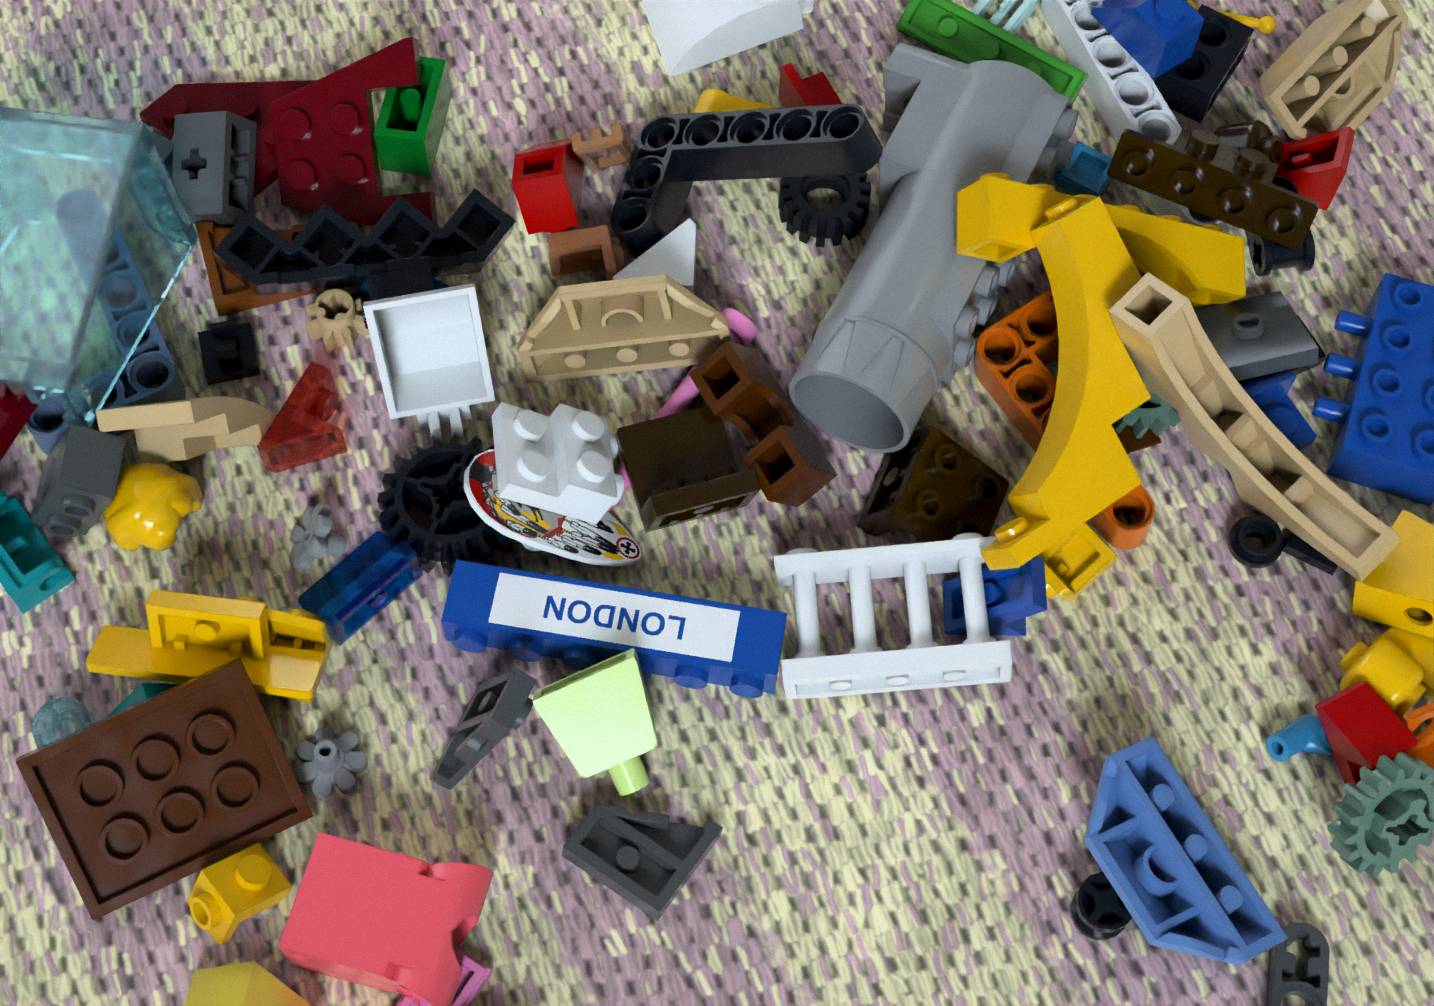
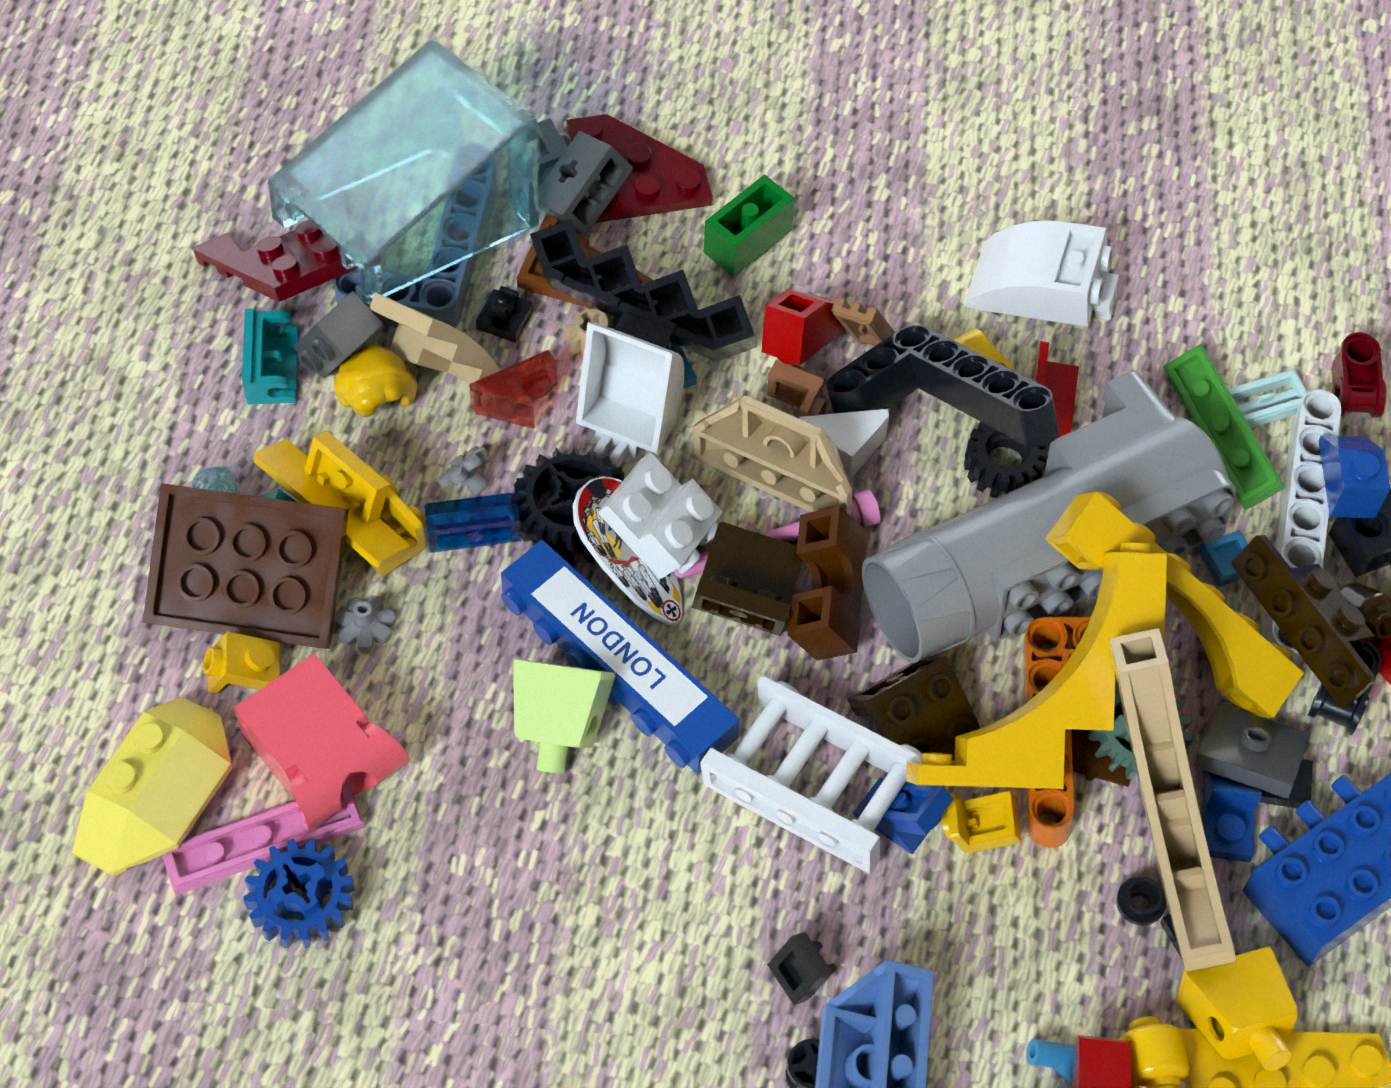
camera: 35 degrees right, 5 degrees down
(329, 142) = (671, 210): dark red wing -> none
(490, 716) = (487, 658): dark grey wing -> none
(640, 854) = (518, 816): dark grey wing -> none
(1020, 816) = (800, 968): none -> black tile

